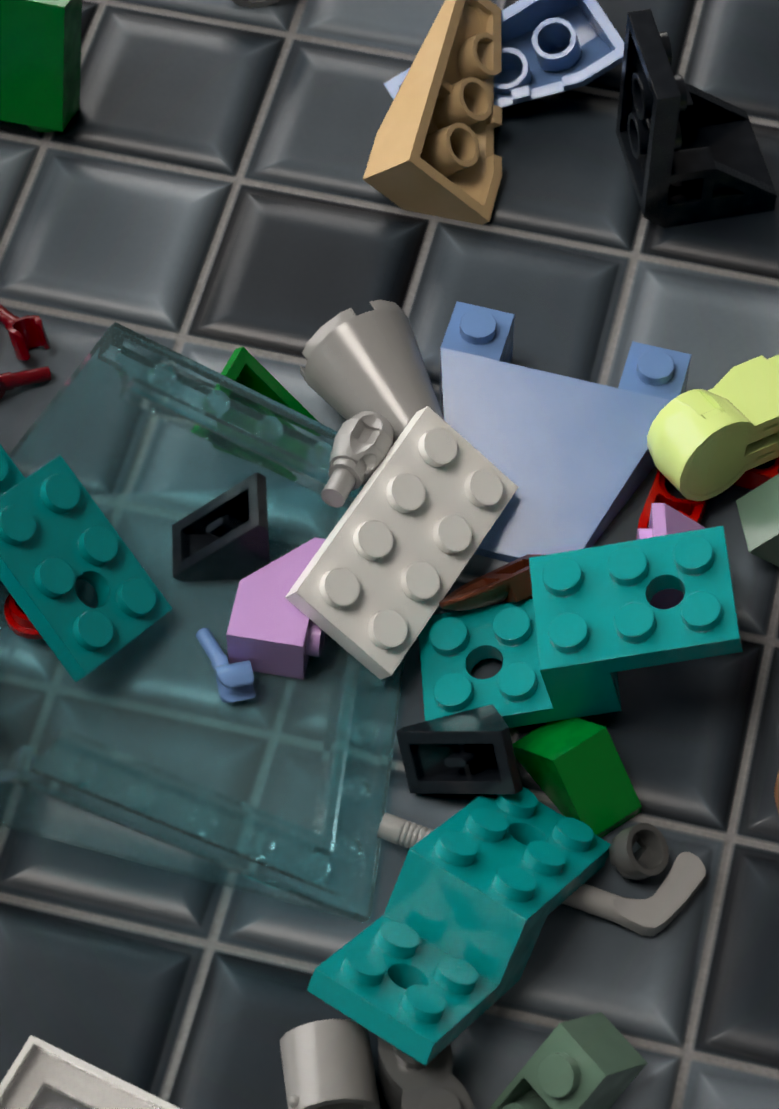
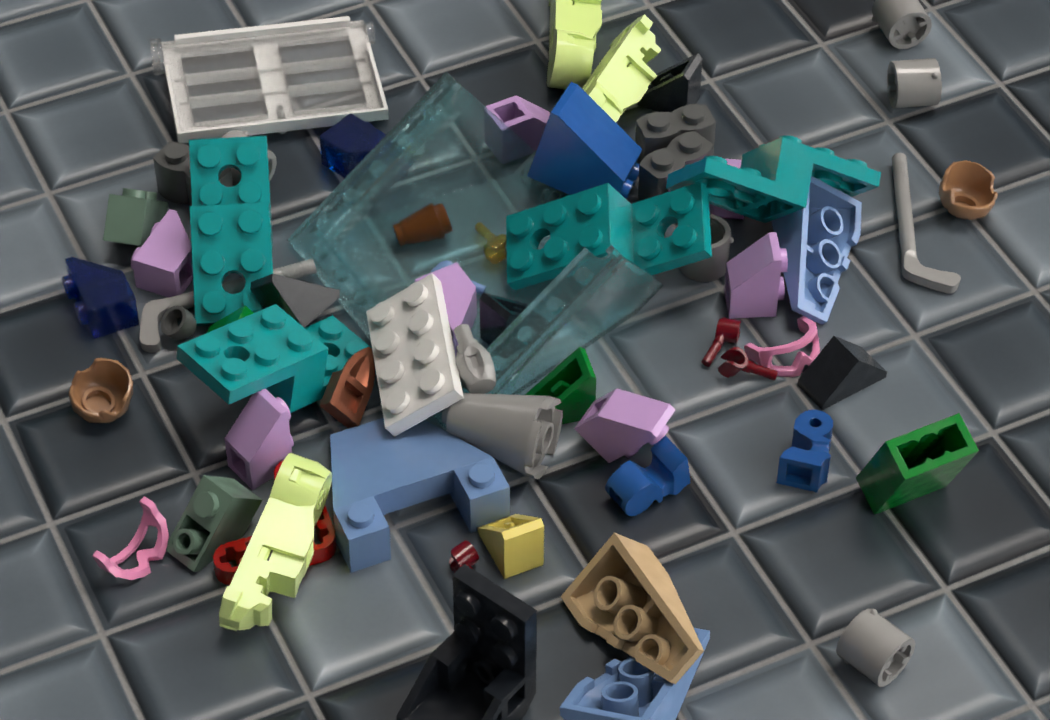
camera: 140 degrees right, 10 degrees down
(54, 192) = (808, 459): none -> blue leg
(126, 674) = (495, 246): none -> clear yellow hand
(144, 983) = (348, 144): none -> clear blue slope
(193, 761) = (423, 225): none -> reddish brown cone
(249, 296) = (623, 423): none -> lavender slope
(294, 261) = (637, 487): none -> blue leg
(493, 268) = (514, 543): none -> light yellow slope
(557, 314) = (463, 554): none -> dark red hand
(573, 973) = (164, 259): none -> lavender slope
(711, 970) = (101, 295): none -> clear blue slope

